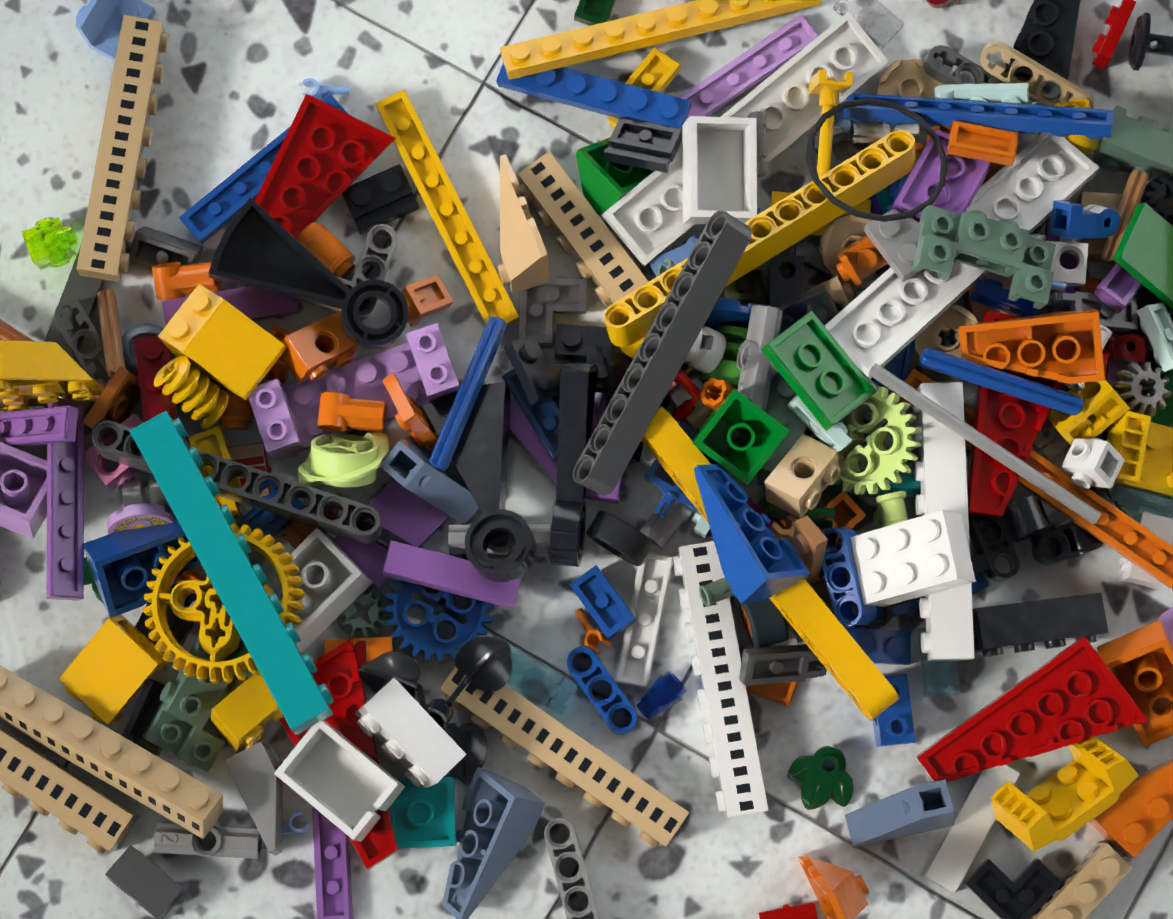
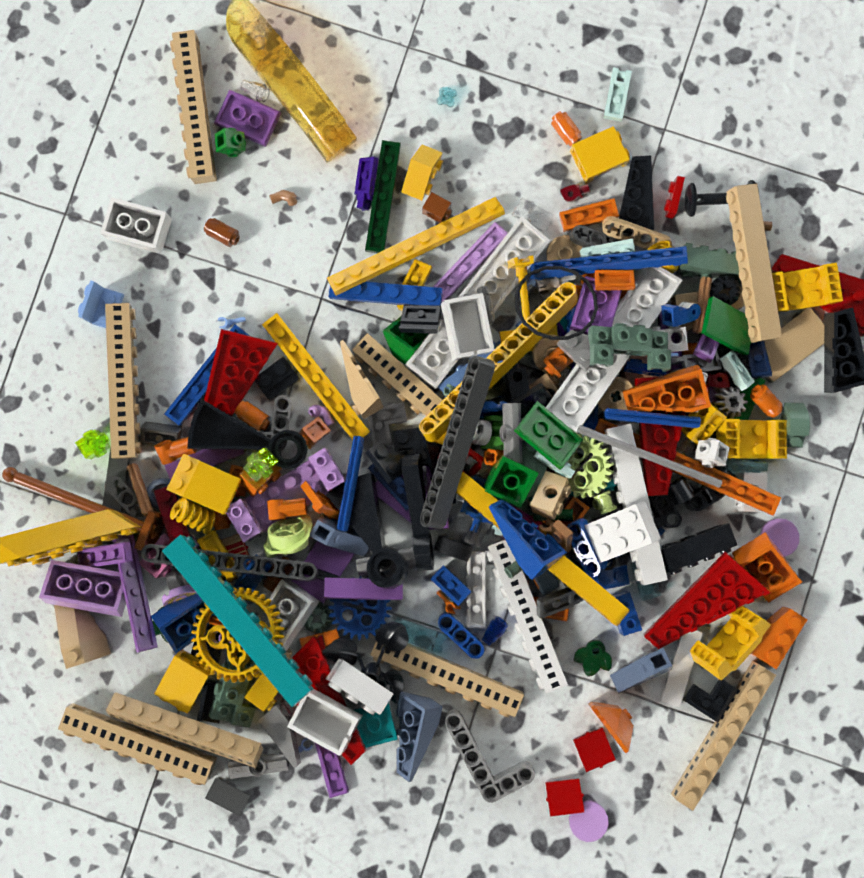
camera: 10 degrees left, 5 degrees up
(324, 326) = (260, 464): none -> clear neon green brick
(446, 270) = (322, 412): none -> lavender arm
(961, 32) = (588, 214): none -> orange plate

